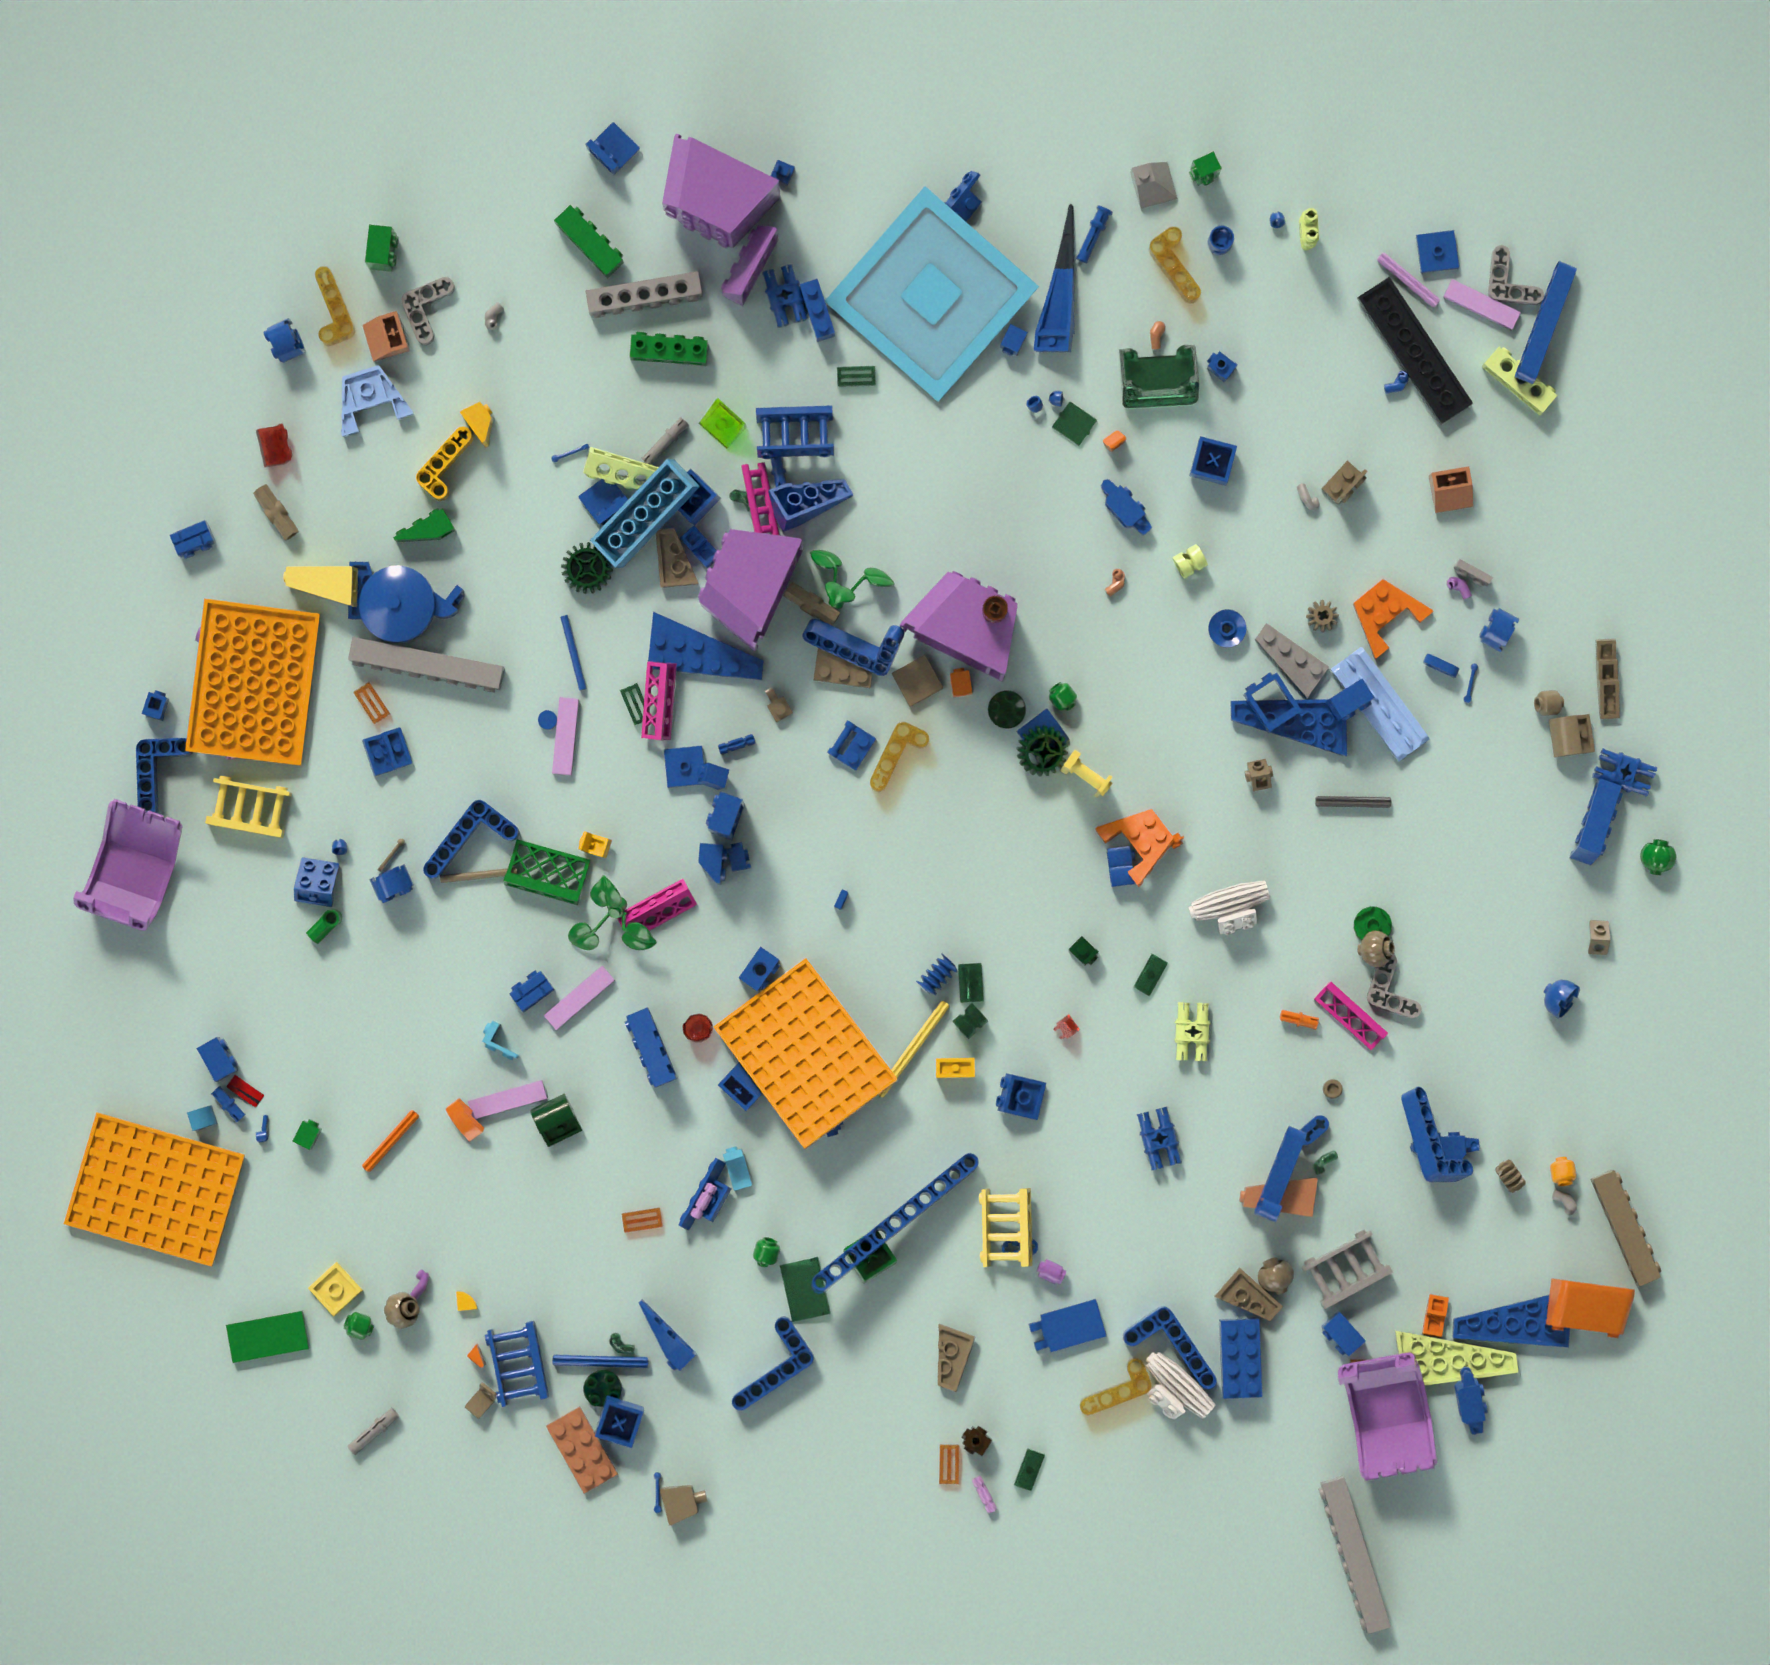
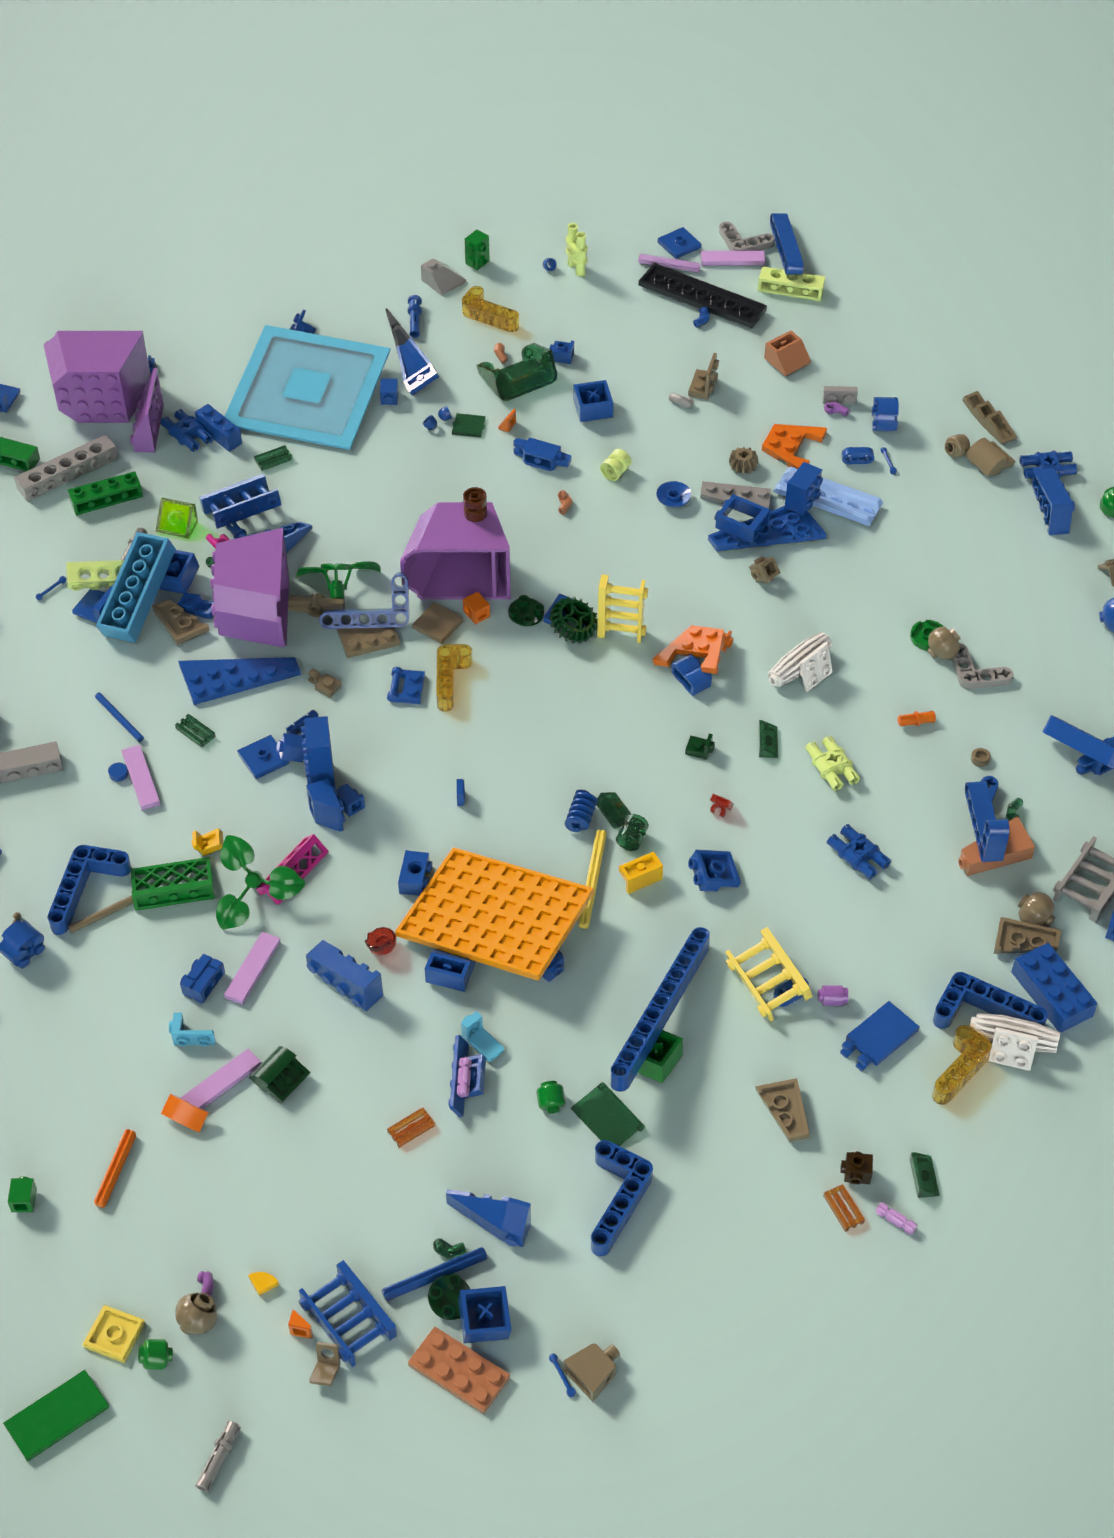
camera: 25 degrees left, 35 degrees down
(581, 575) = (102, 653): dark green gear -> none
(663, 701) = (214, 696): dark pink fence -> none
(1062, 696) = (568, 584): green head -> none
(1220, 240) = (514, 284): blue wheel -> none
(1346, 801) = (852, 563): dark grey axle -> none
(1356, 1010) = (958, 694): dark pink fence -> none

